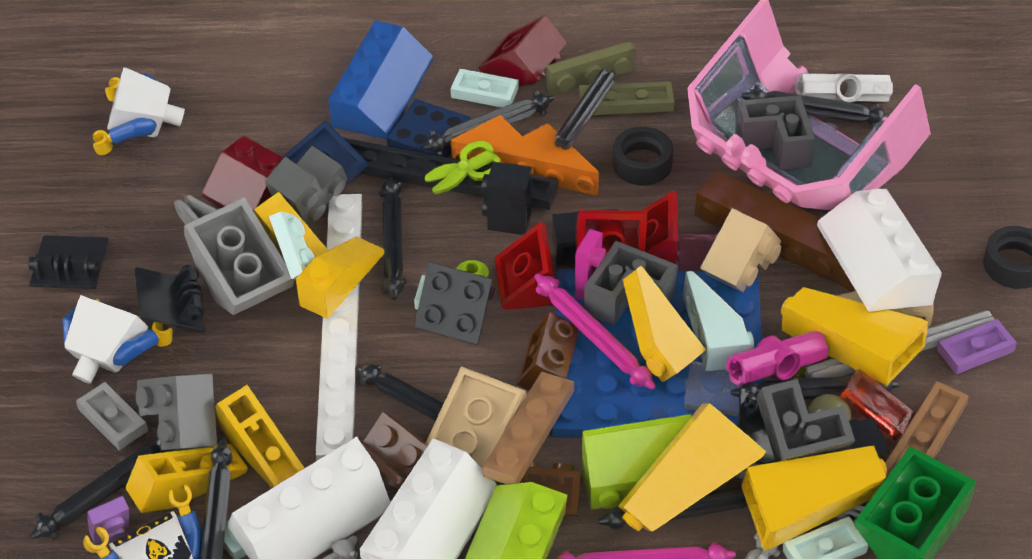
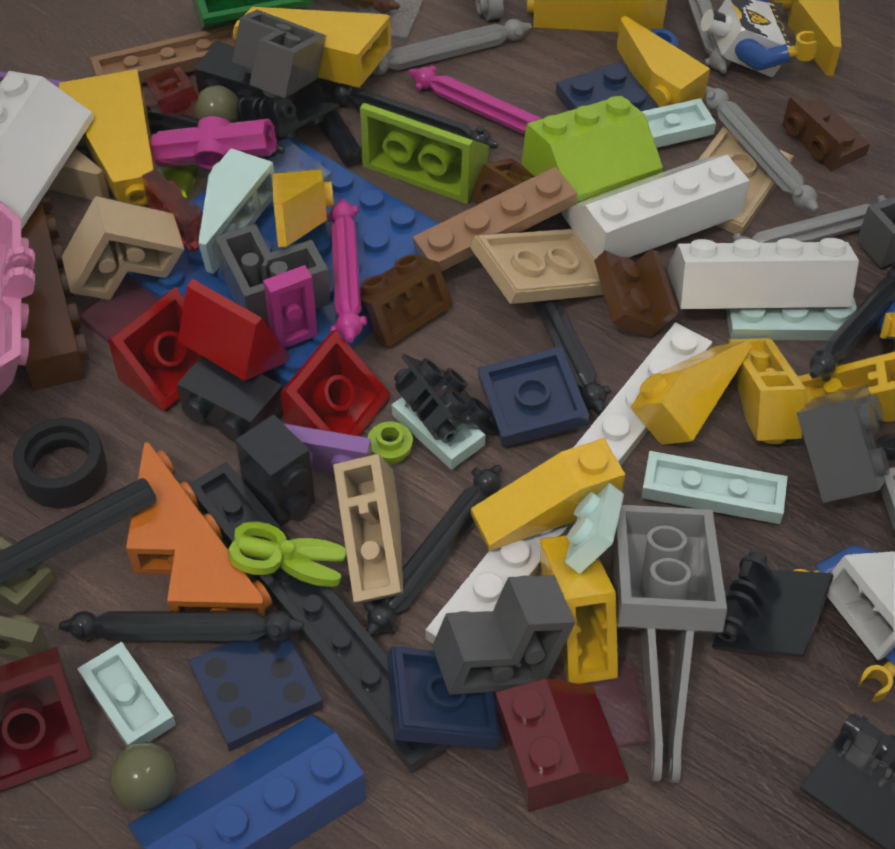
camera: 145 degrees left, 5 degrees up
(252, 356) = (715, 487): none -> light aqua plate
(304, 398) = (683, 396): none -> yellow slope
(406, 345) = (533, 396): none -> dark blue plate
(437, 216) = (370, 527): none -> tan slope
(441, 66) = (143, 776): none -> olive piece
(491, 242) = (331, 447): none -> medium lavender plate
(692, 465) = (405, 87): yellow slope -> none
(750, 300) = (168, 198): none -> clear red plate

